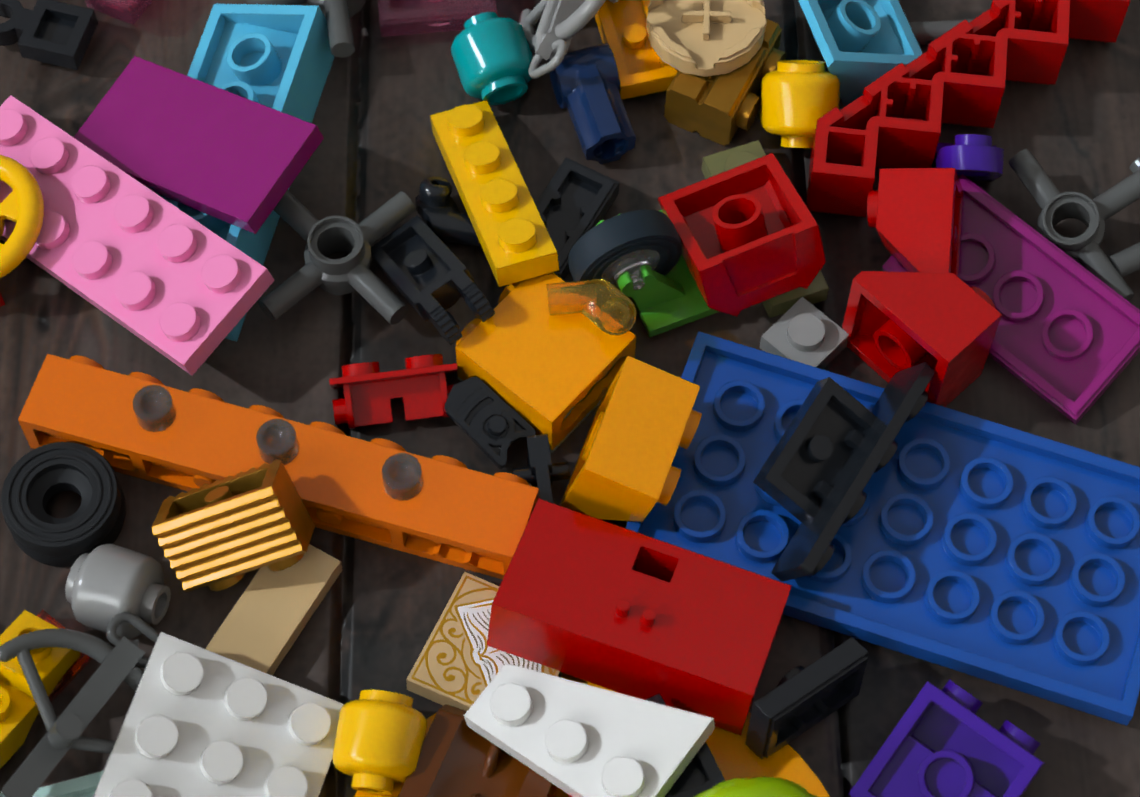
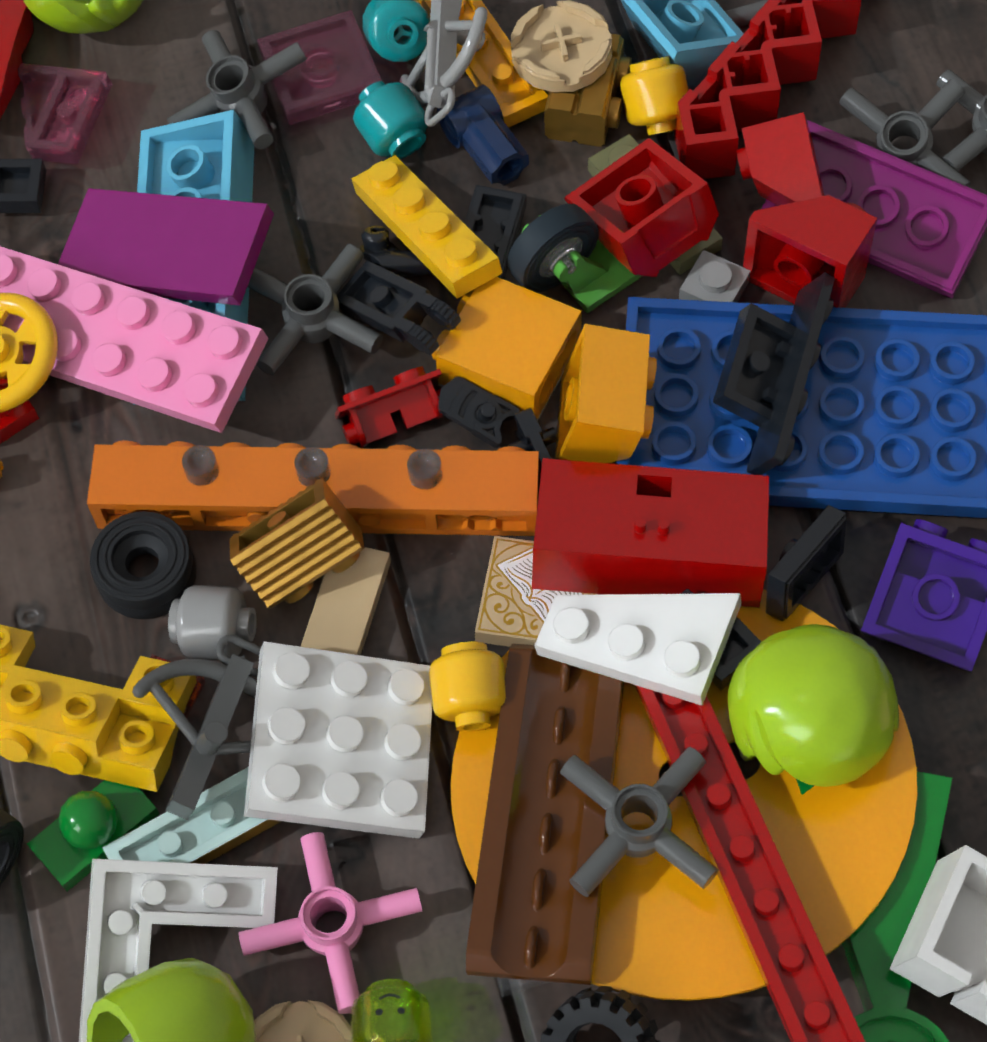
camera: 10 degrees left, 0 degrees up
(596, 301) = (541, 289): clear yellow arm -> none
(971, 156) = (812, 99): dark purple plate -> none

